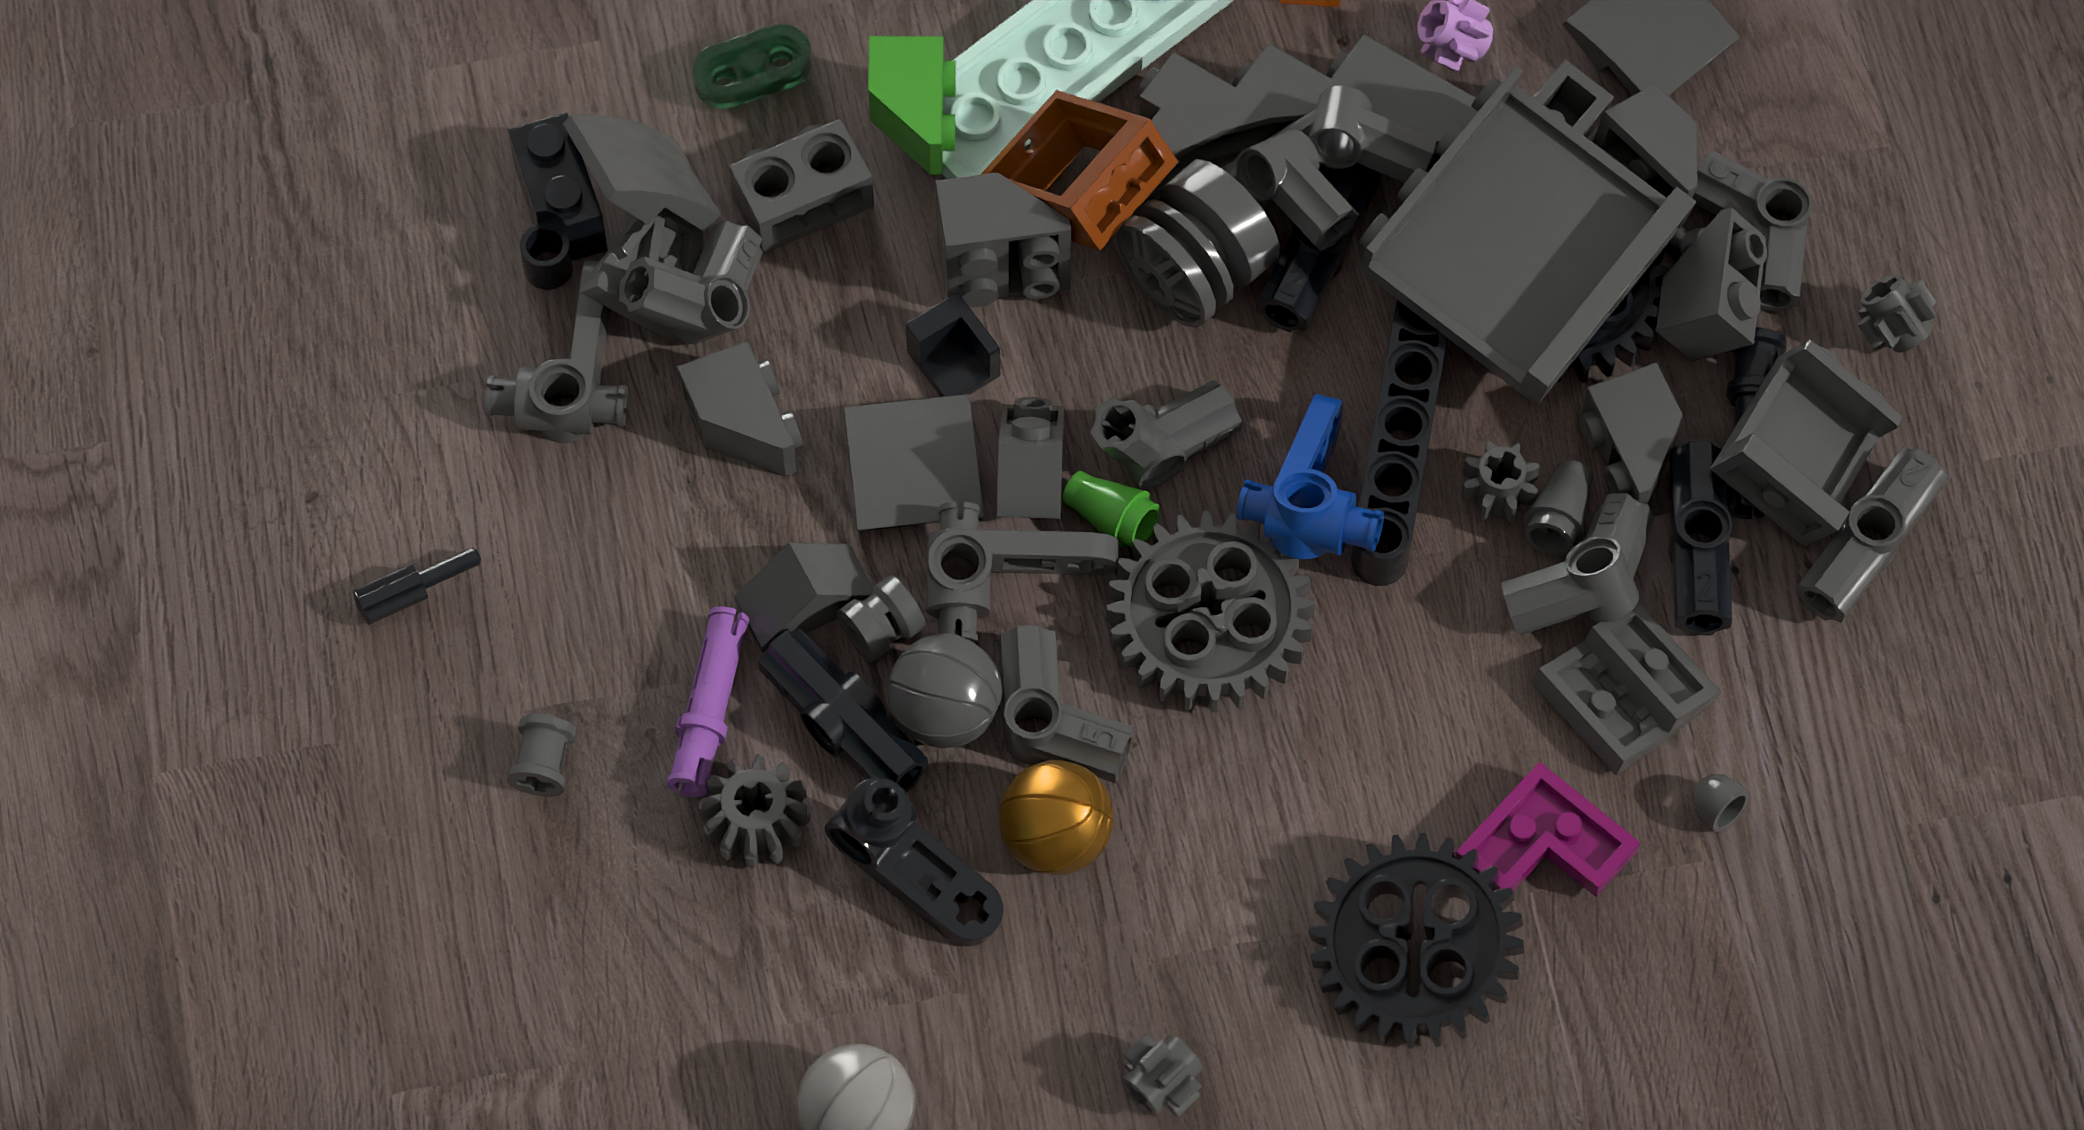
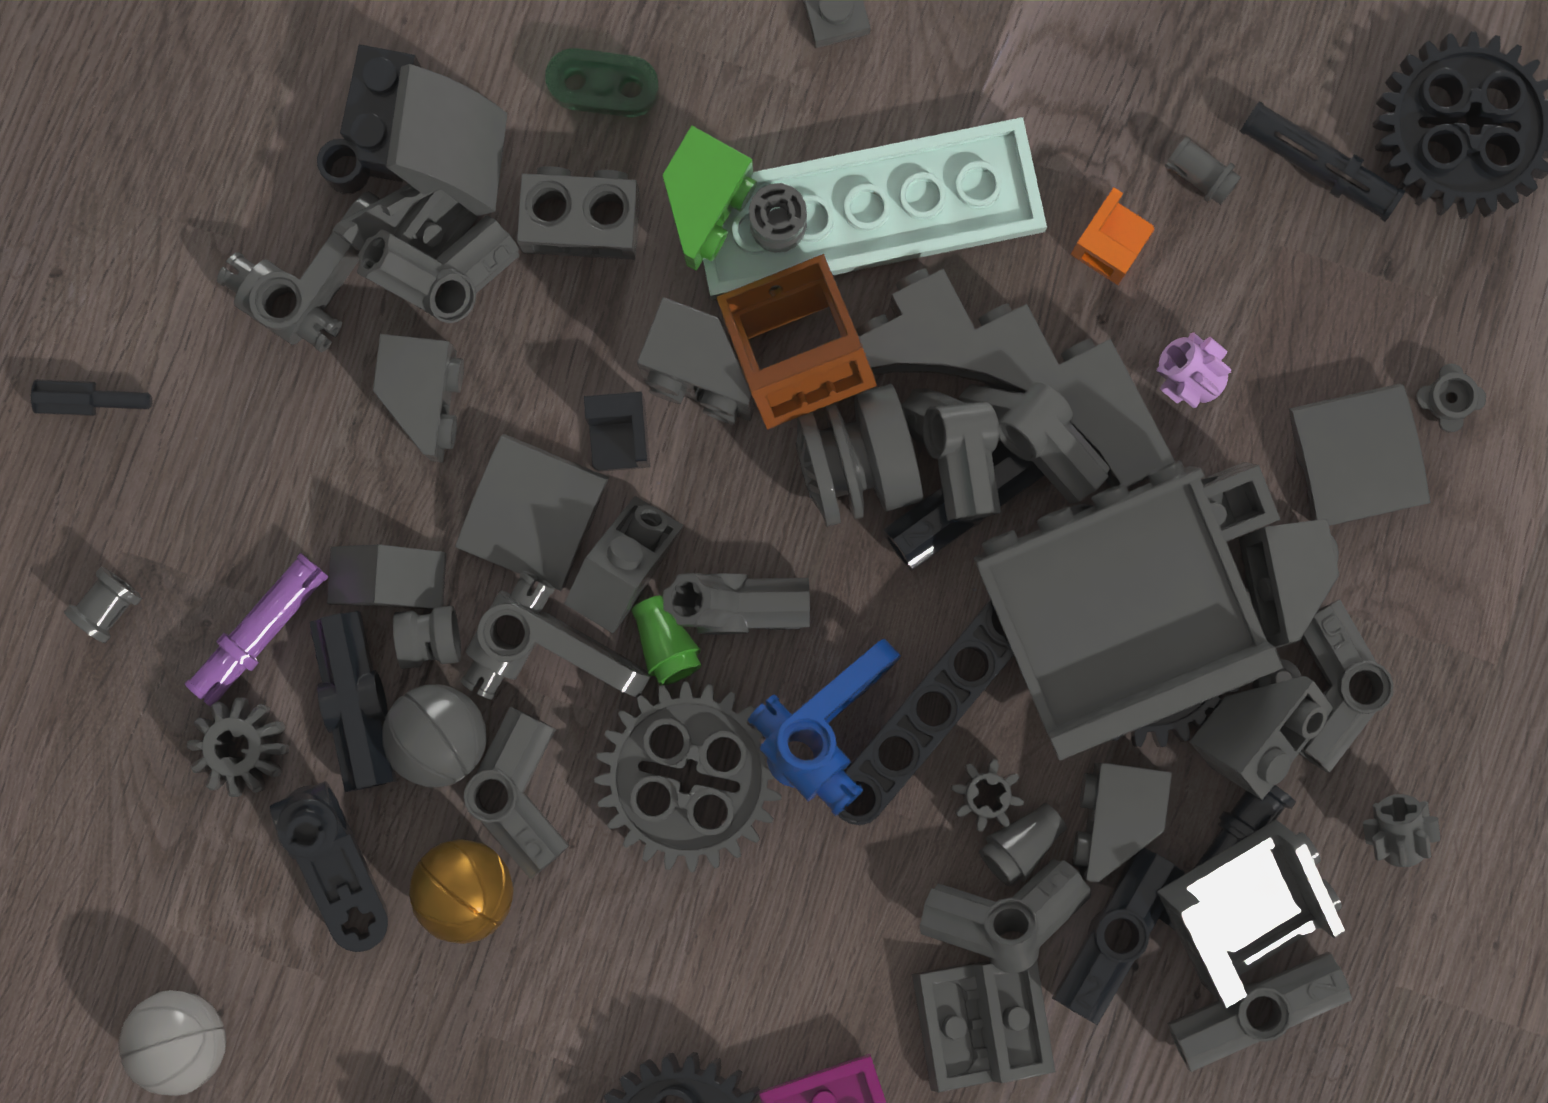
camera: 35 degrees right, 20 degrees up
(994, 83) = (775, 228): none -> dark grey wheel

